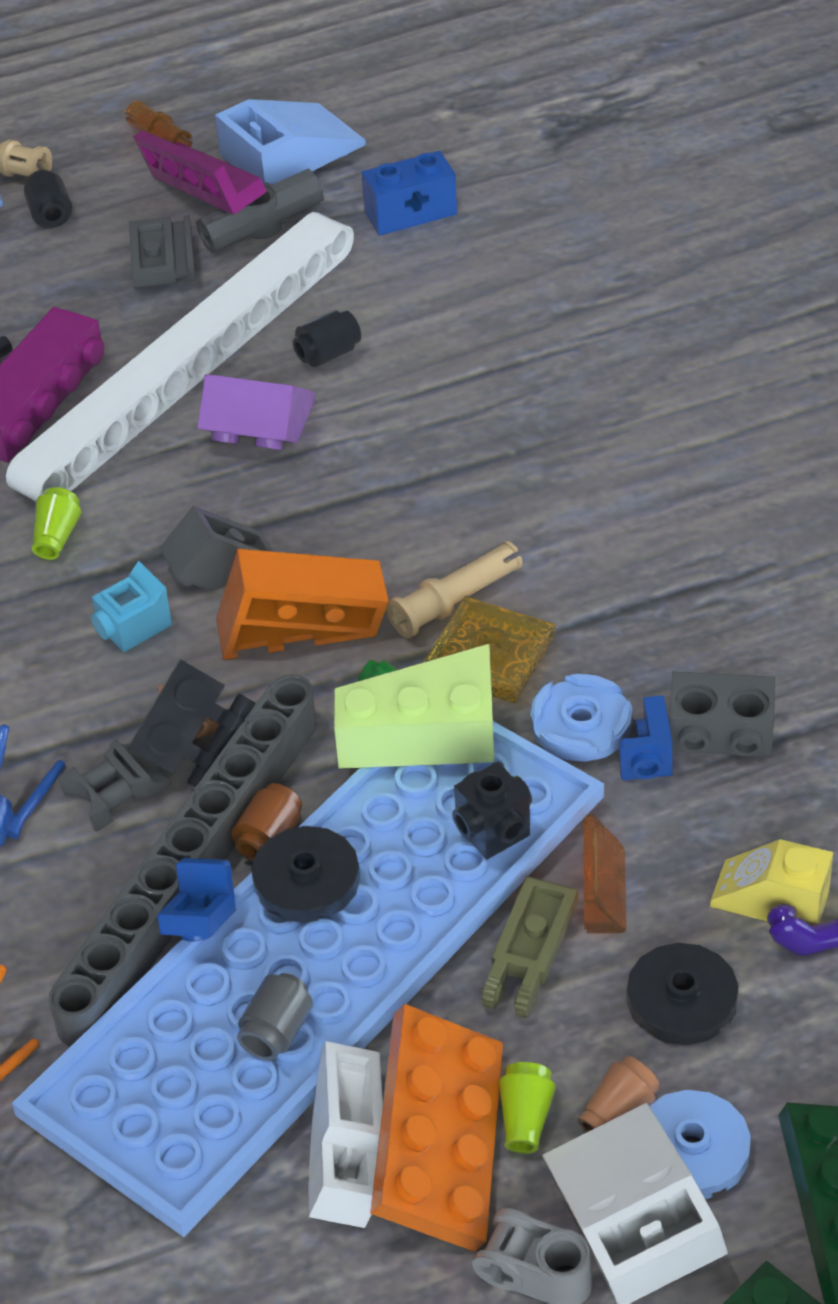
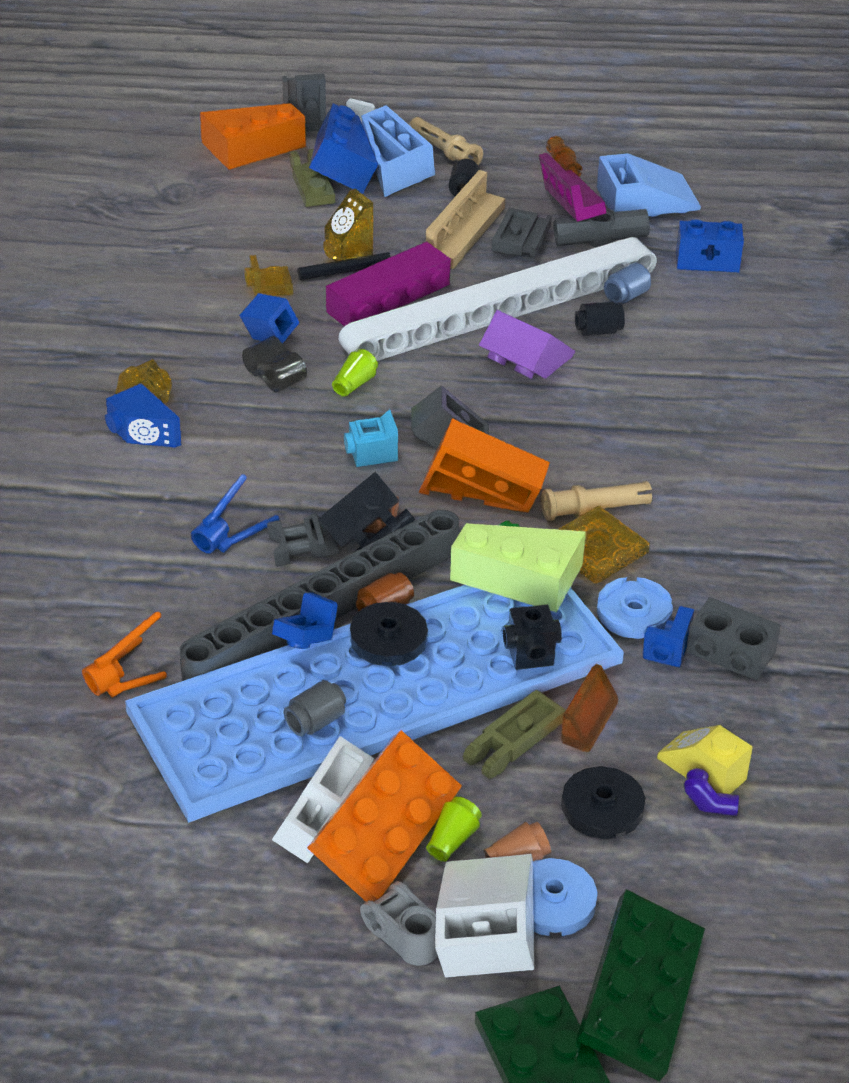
camera: 20 degrees right, 5 degrees down
(81, 256) = (465, 219): none -> tan fence
(335, 277) = (627, 283): none -> sand blue brick

